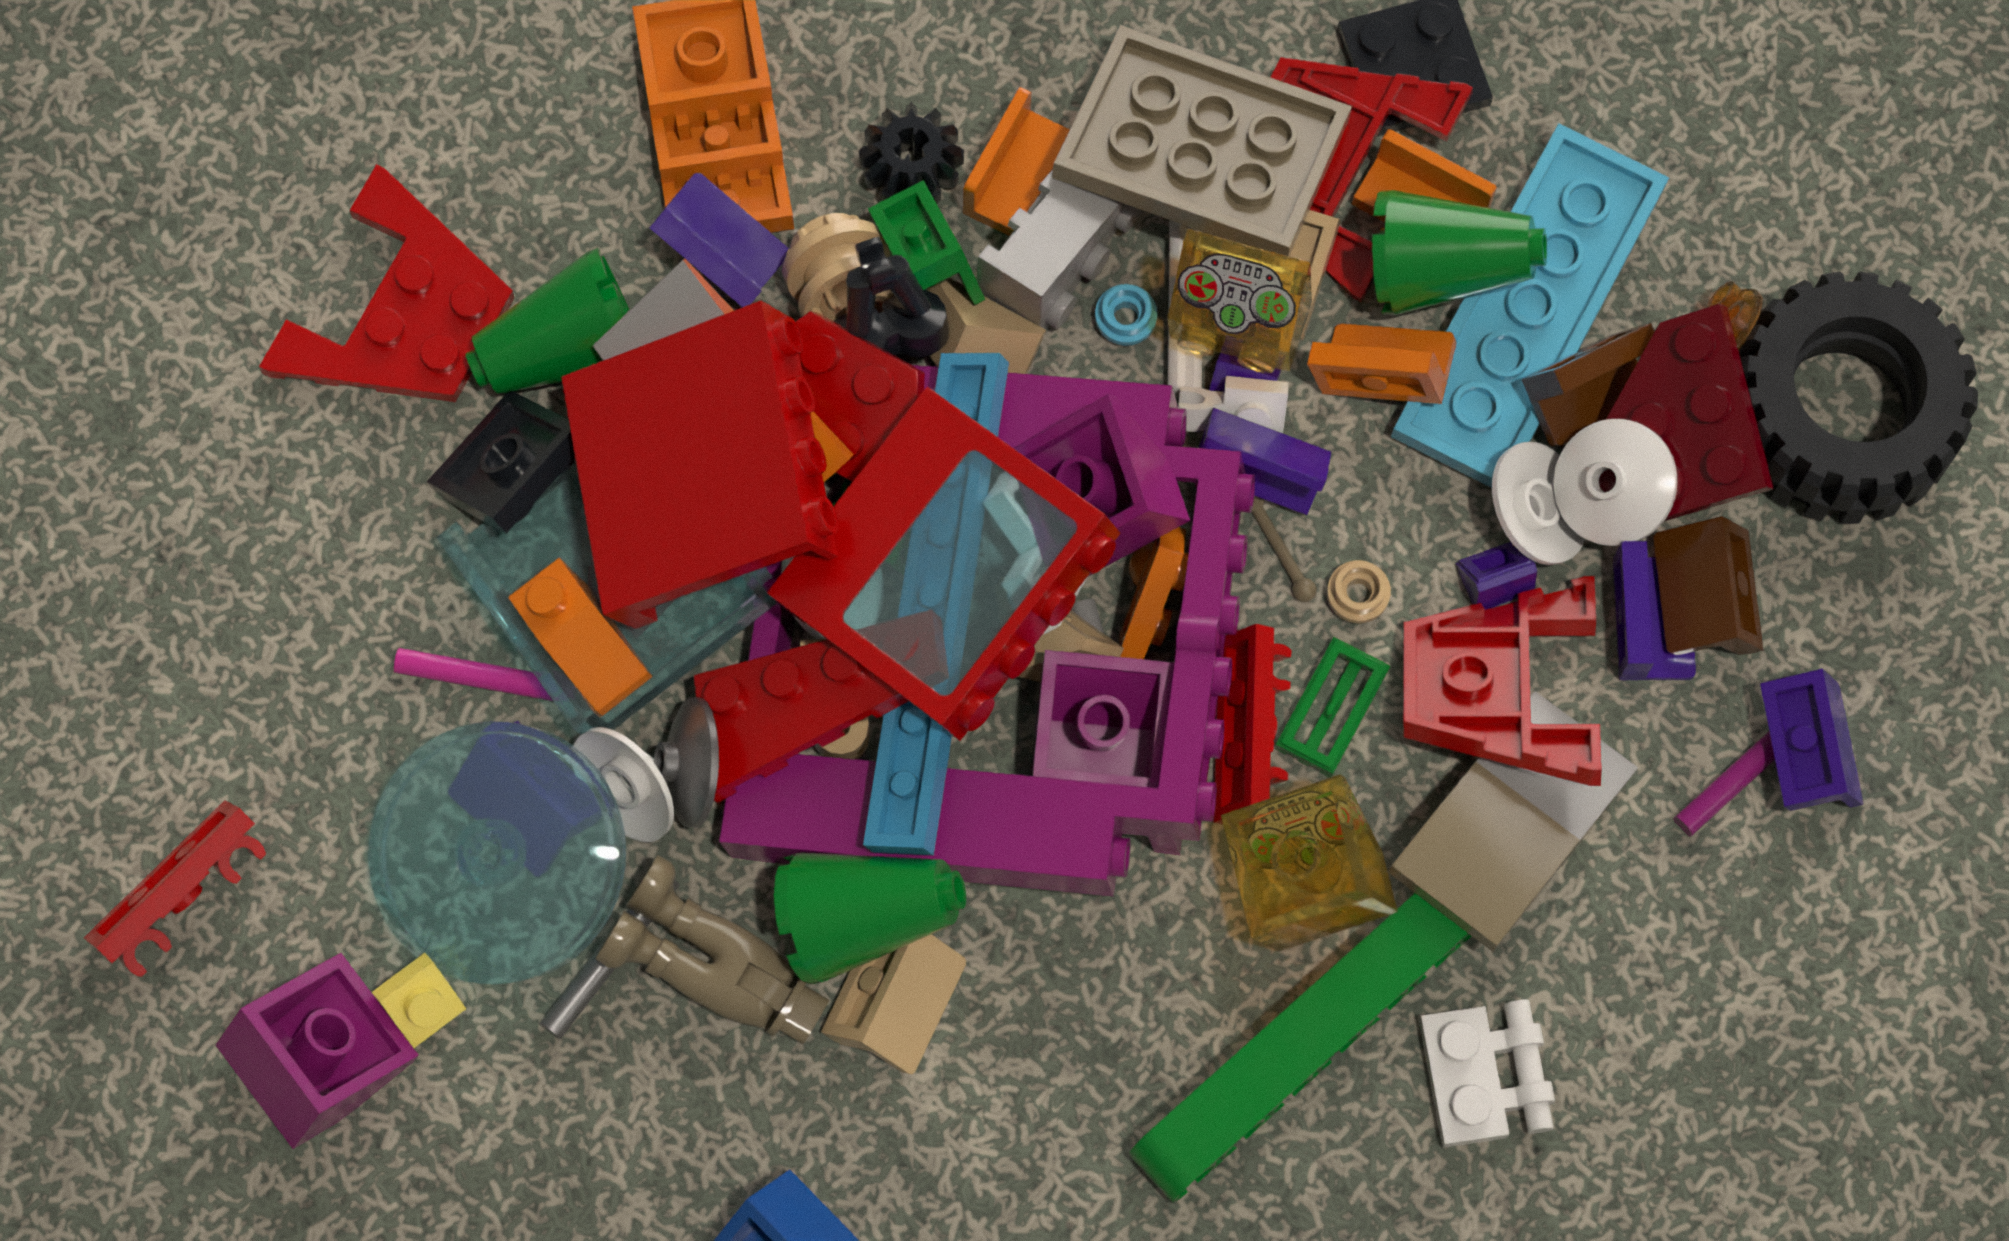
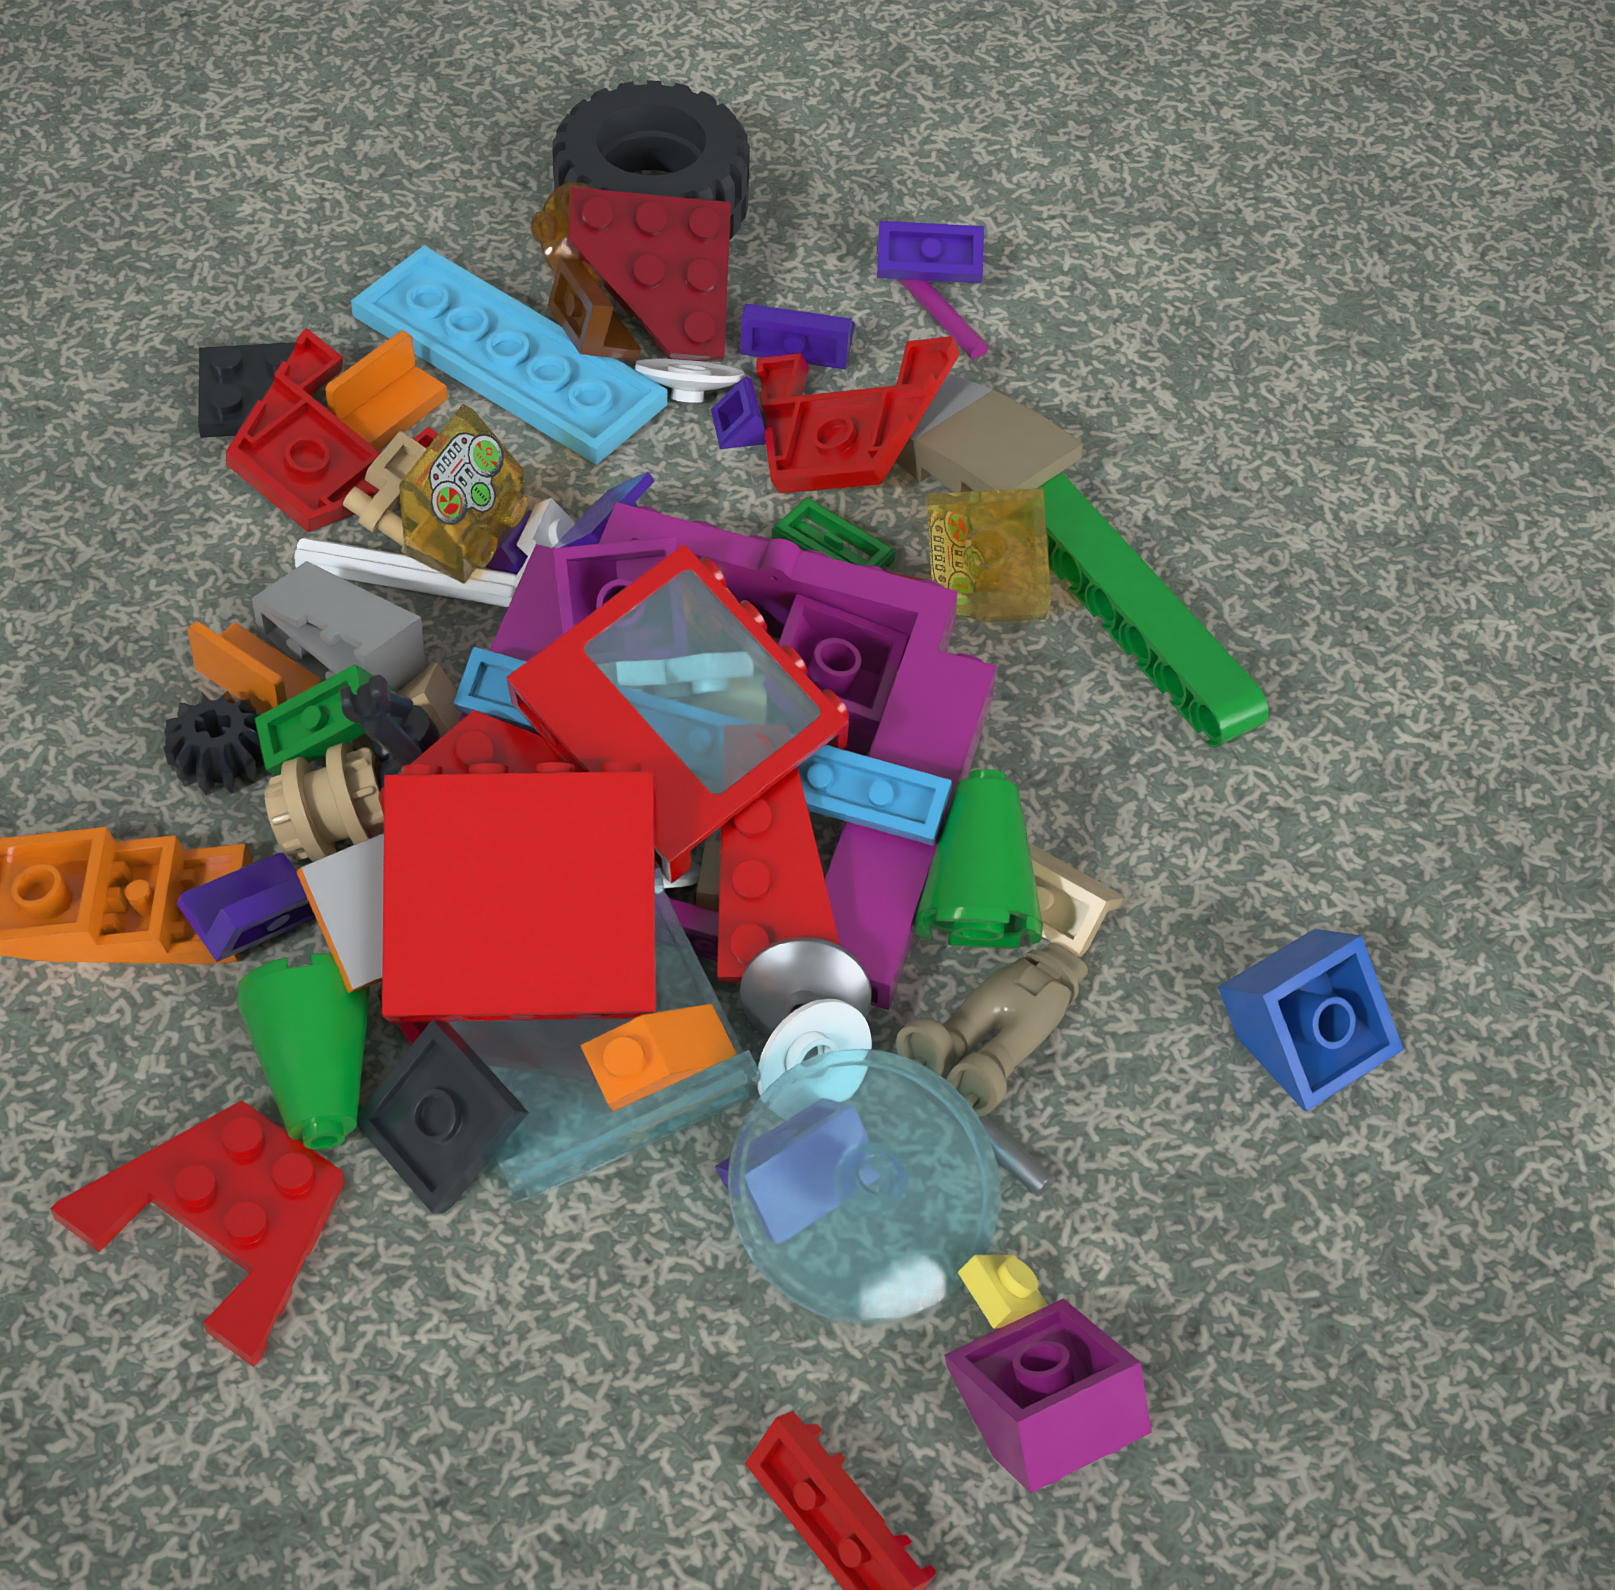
camera: 80 degrees left, 20 degrees down
(469, 673) = (654, 1201): dark pink bar -> none
(1126, 297) = (435, 605): medium azure plate -> none
(1202, 142) = (291, 507): dark tan plate -> none
(1358, 573) = (735, 494): tan plate -> none
(1384, 363) = (542, 433): orange panel -> none
(1448, 250) = (449, 365): green cone -> none
(1466, 1077) = (1172, 516): white plate -> none
(1642, 488) = (681, 334): white dish -> none
(1708, 588) = (784, 286): reddish brown panel -> none

